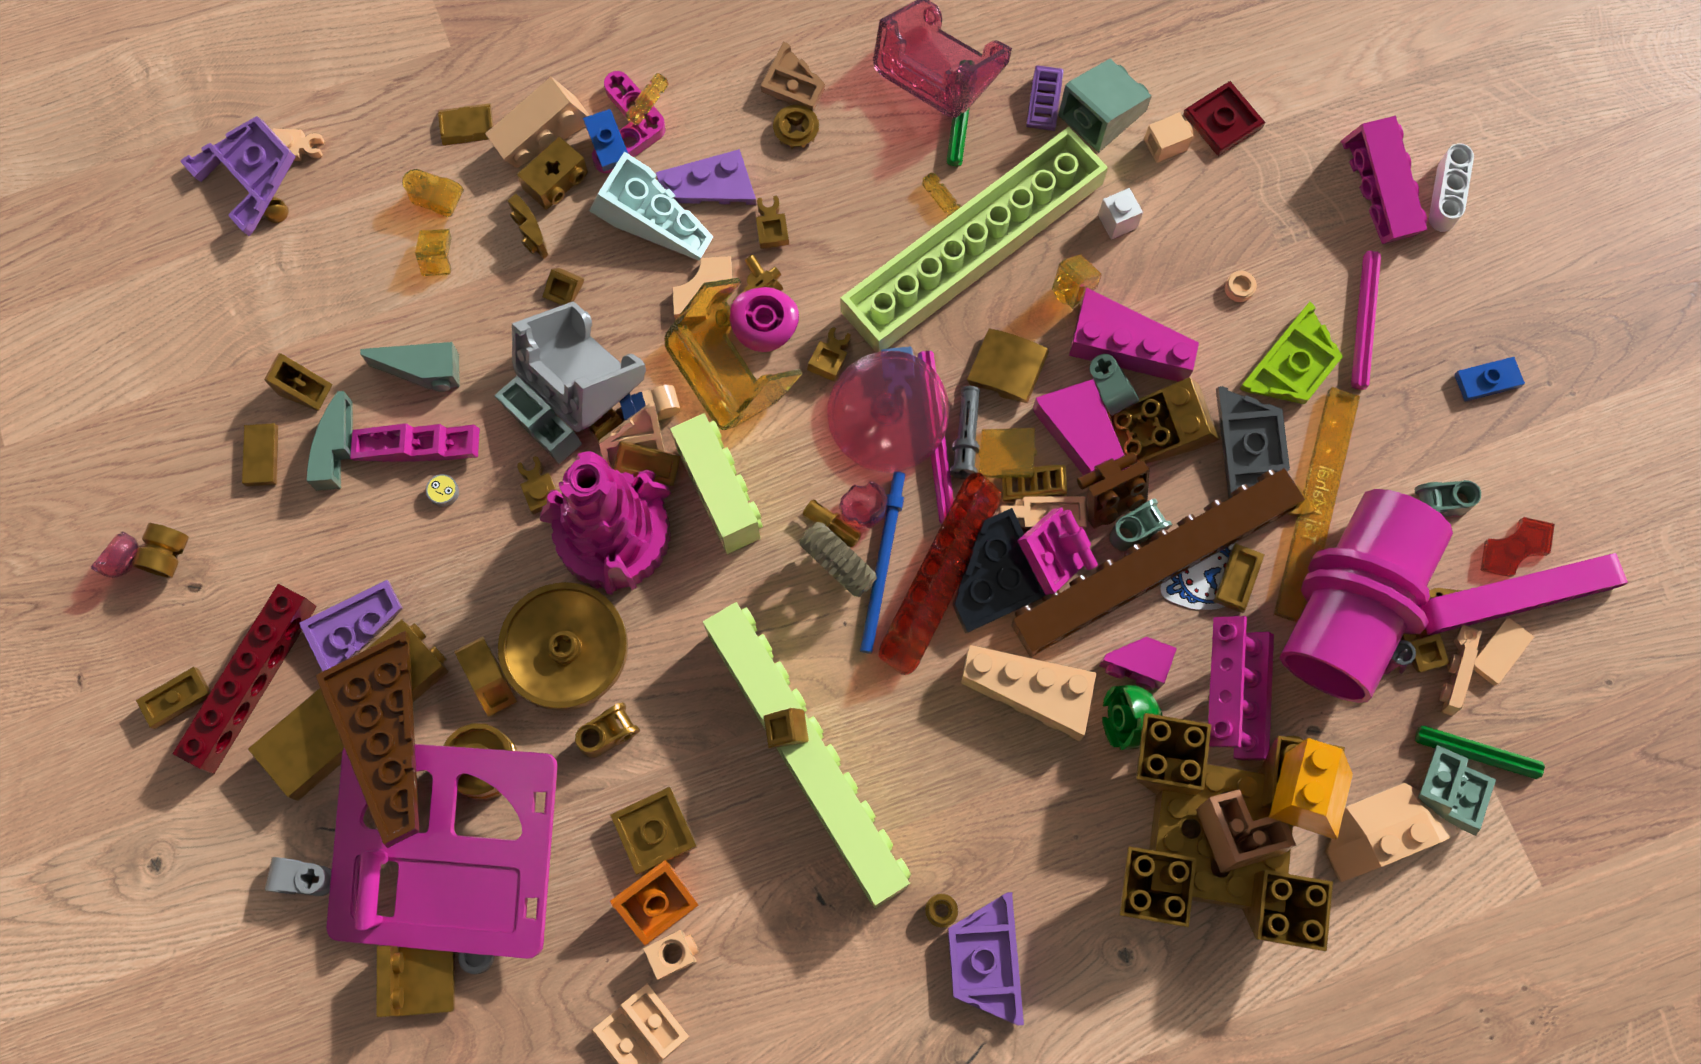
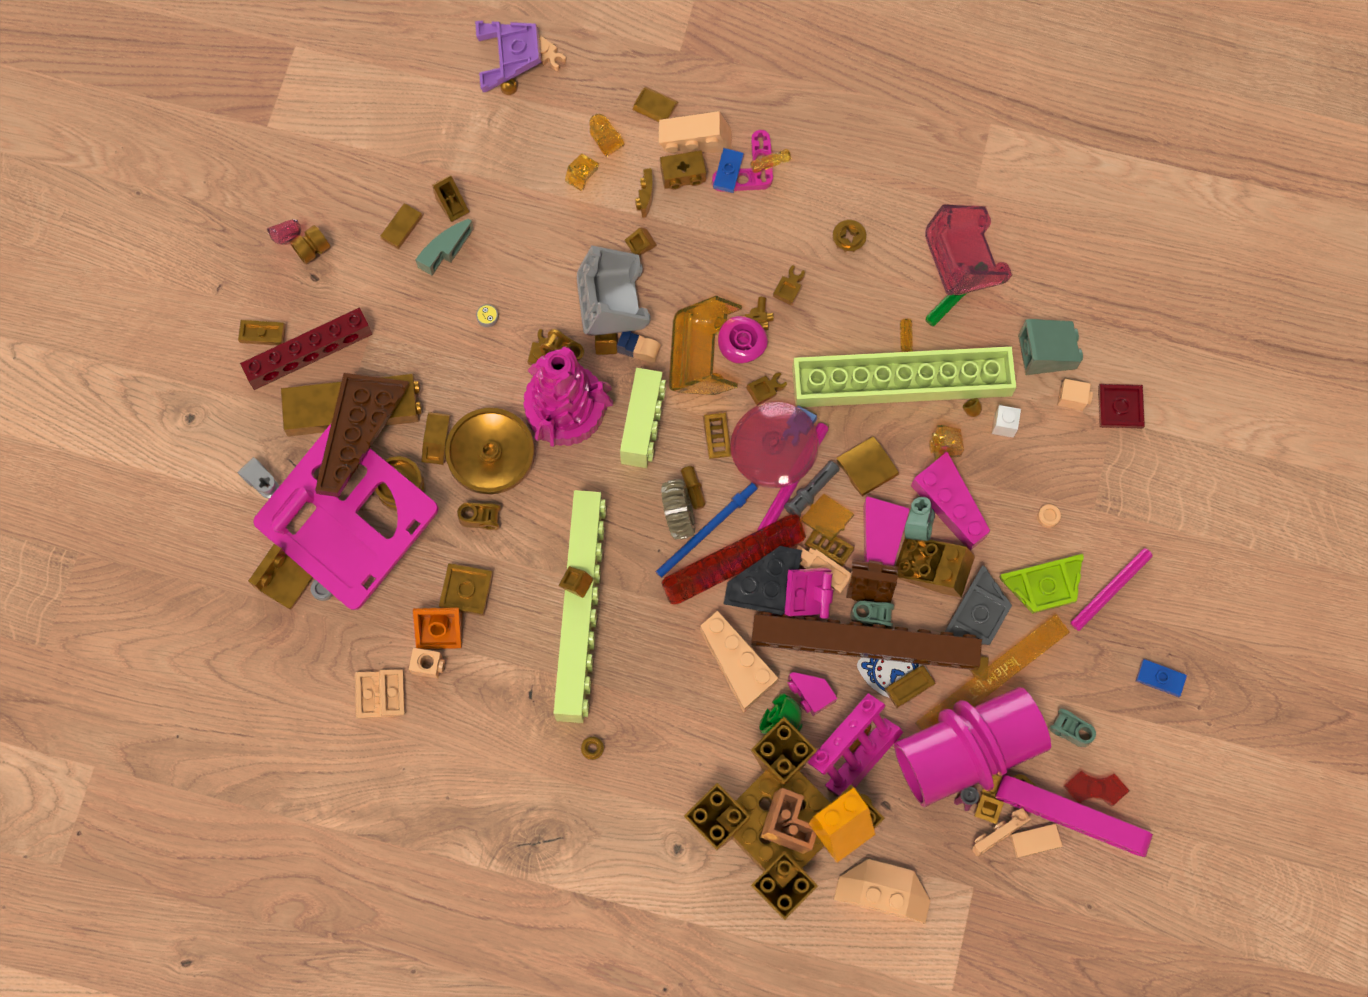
camera: 35 degrees right, 0 degrees up
(350, 625) = (383, 357): medium lavender wing -> none
(414, 444) = (490, 278): dark pink slope -> none
(426, 365) = (529, 236): sand green slope -> none
(538, 419) = (569, 309): sand green slope -> none
(555, 467) = (562, 341): none -> pearl gold piece
(637, 458) = (609, 373): pearl gold tile -> none
(639, 429) = (614, 361): light nougat wing -> none
(643, 207) = (721, 226): light aqua wedge -> none
(710, 179) = (773, 234): medium lavender wing -> none
(710, 270) = (733, 292): light nougat tile -> none
(792, 80) = (868, 206): medium nougat wing -> none
(814, 430) = (712, 418): none -> pearl gold slope
(863, 505) = (718, 489): clear pink hair -> none
(987, 960) = (596, 793): medium lavender wing -> none
(1047, 80) = (1028, 312): medium lavender slope -> none
(1072, 223) = (972, 407): none -> pearl gold hinge
(1387, 179) = (1191, 513): dark pink wedge -> none
(1456, 790) = (941, 897): sand green slope -> none
(1458, 178) = (1239, 540): white beam -> none
(1480, 752) = (975, 887): green axle -> none

